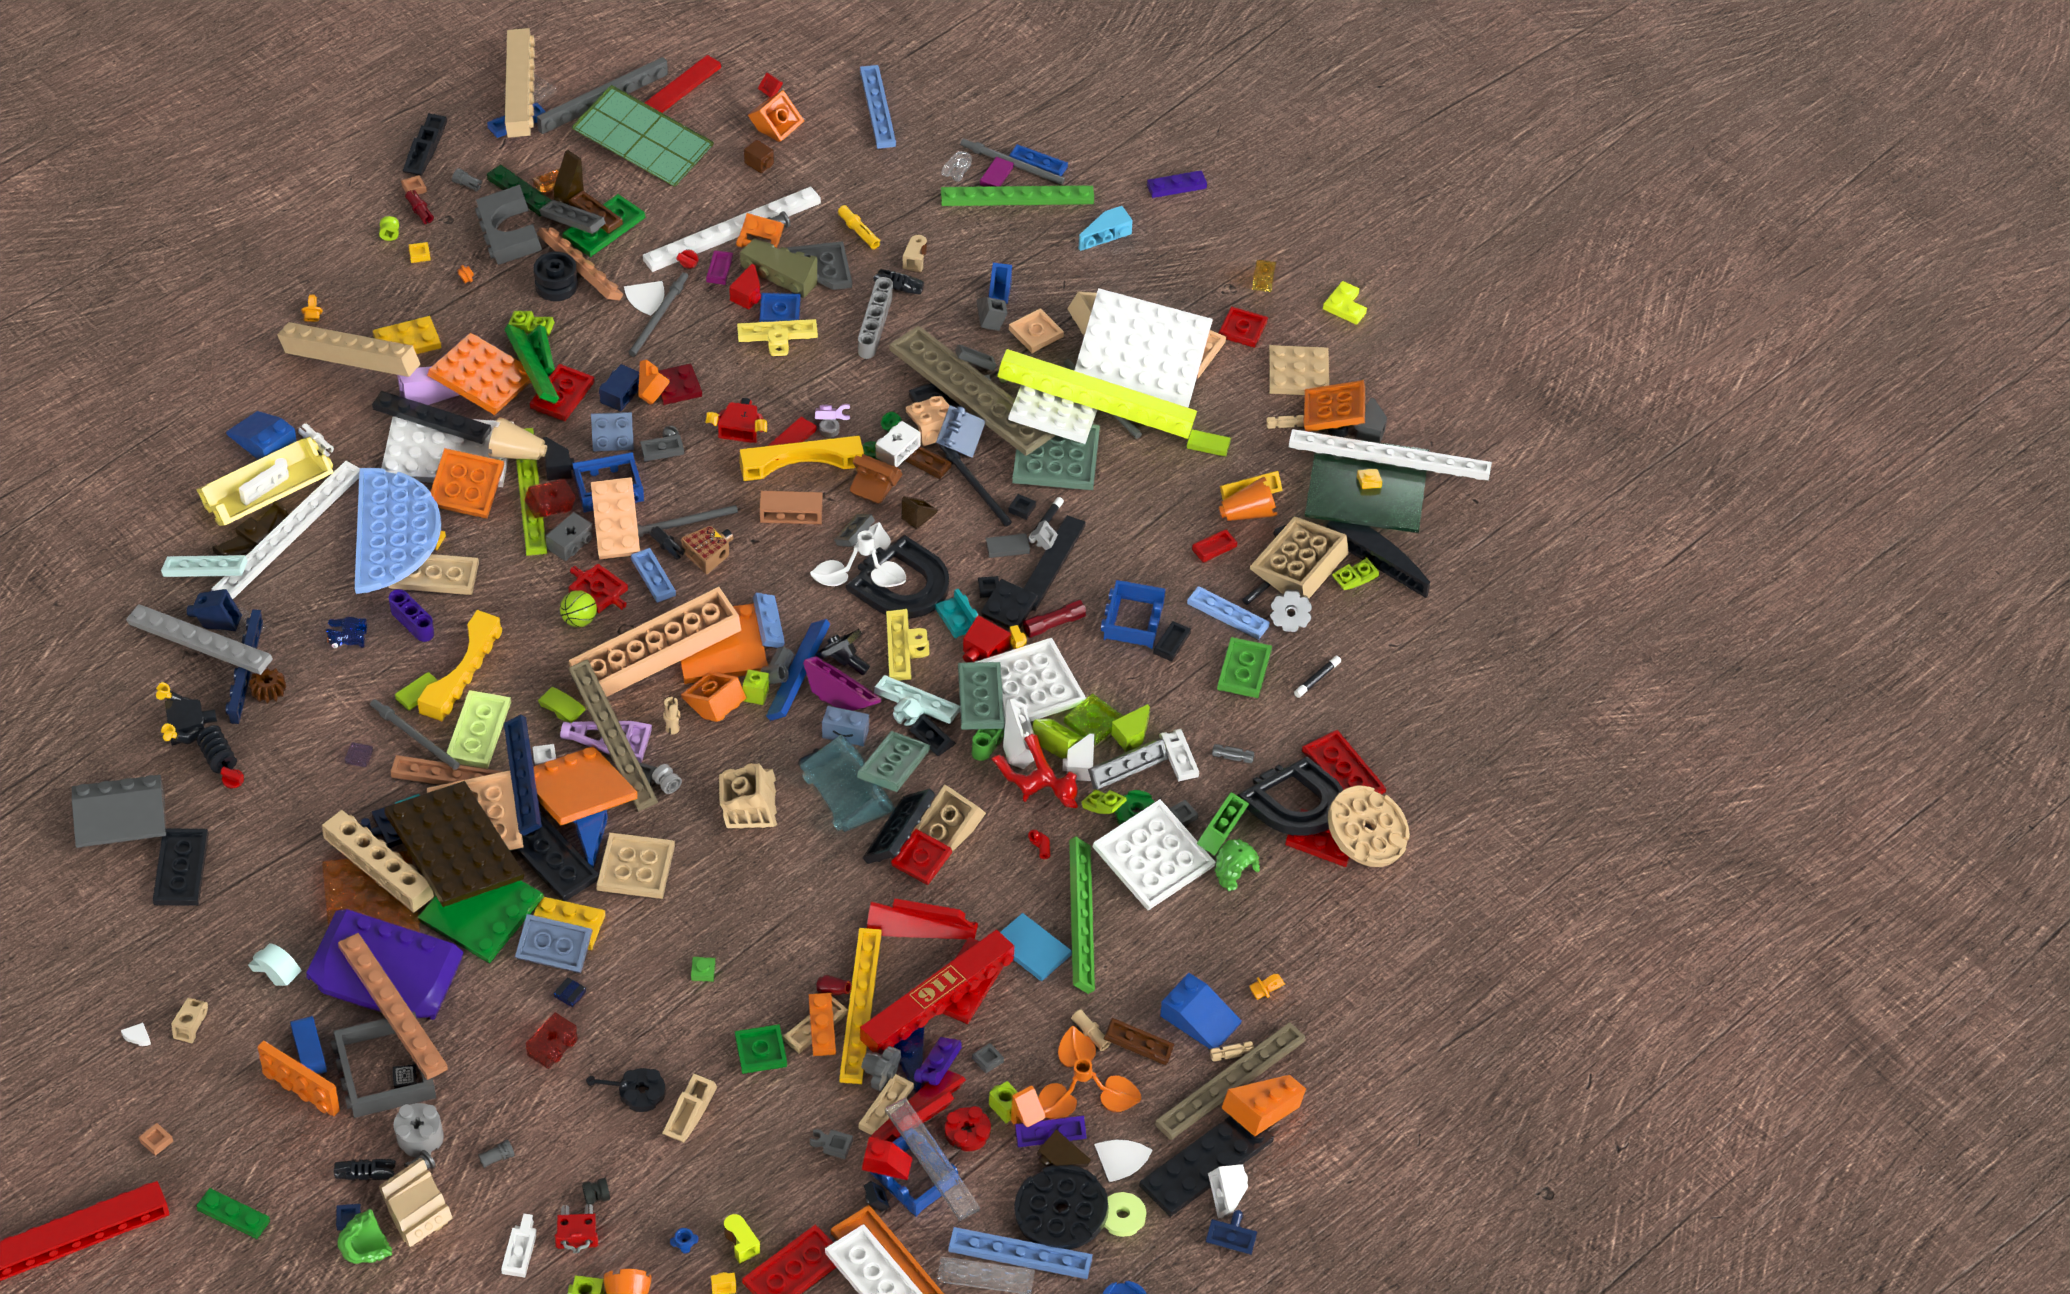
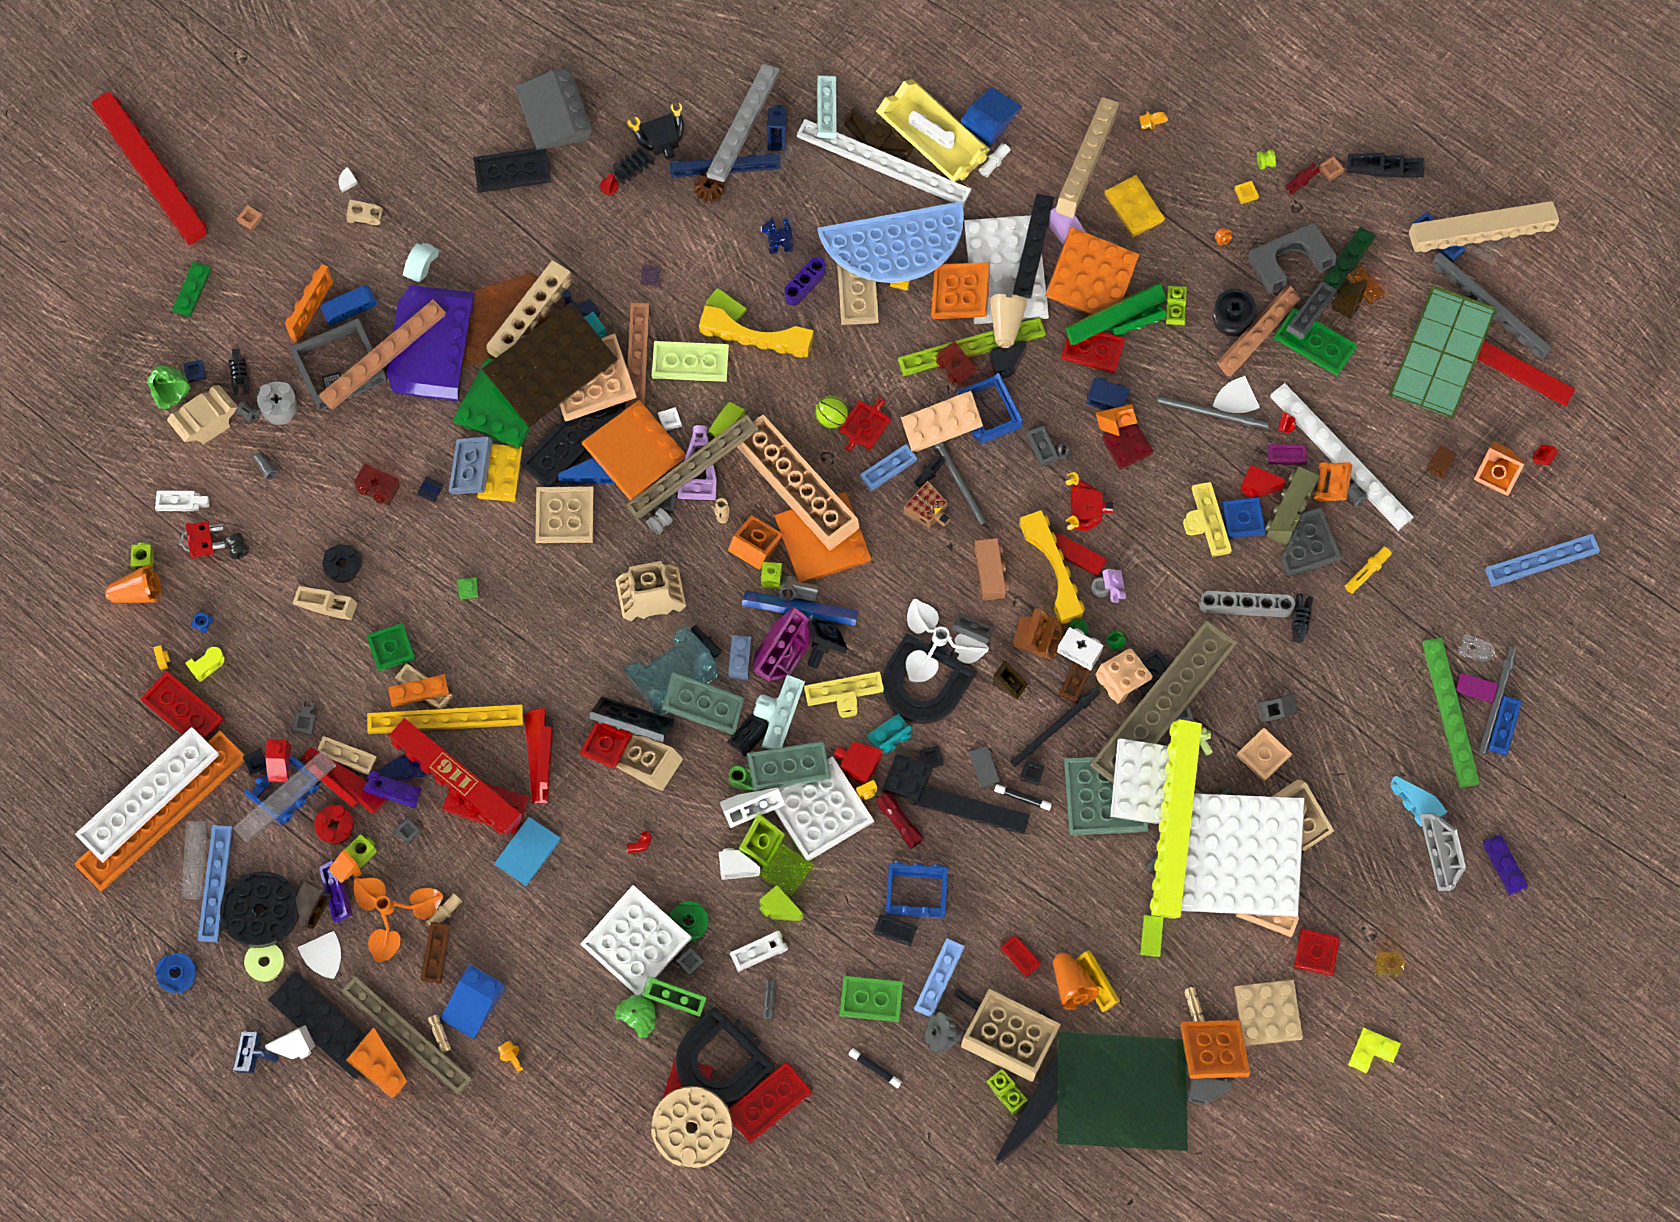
camera: 85 degrees right, 20 degrees up
(389, 714) = (696, 287): dark grey bar -> none
(462, 178) = (1349, 206): dark grey pin -> none
(522, 775) = (628, 402): dark blue plate -> none
(569, 536) = (913, 382): dark grey brick -> none
(589, 204) = (1325, 329): reddish brown tile -> none
(591, 1081) = (346, 523): black hinge -> none
(612, 431) = (1045, 399): sand blue hinge -> none
(768, 620) = (853, 573): medium blue plate -> none
(833, 985) = (459, 691): dark red cone -> none
(881, 1066) = (376, 744): dark grey plant -> none
(914, 253) = (1344, 626): tan leg -> none
(960, 431) = (1107, 701): hinge -> none
(975, 357) = (1209, 702): dark grey tile -> none
(1001, 281) = (1315, 712): blue slope -> none
(1044, 535) = (994, 796): light grey tile -> none
(1064, 788) = (706, 828): red animal -> none
(1081, 915) = (564, 887): bright green plate -> none
(1103, 803) = (688, 890): lime slope -> none
(1128, 764) = (736, 906): tile -> none
(1163, 209) = (1443, 851): none -> light grey wedge
(1369, 478) = (1122, 1091): yellow plate -> none
(1390, 454) = (1161, 1110): white plate -> none

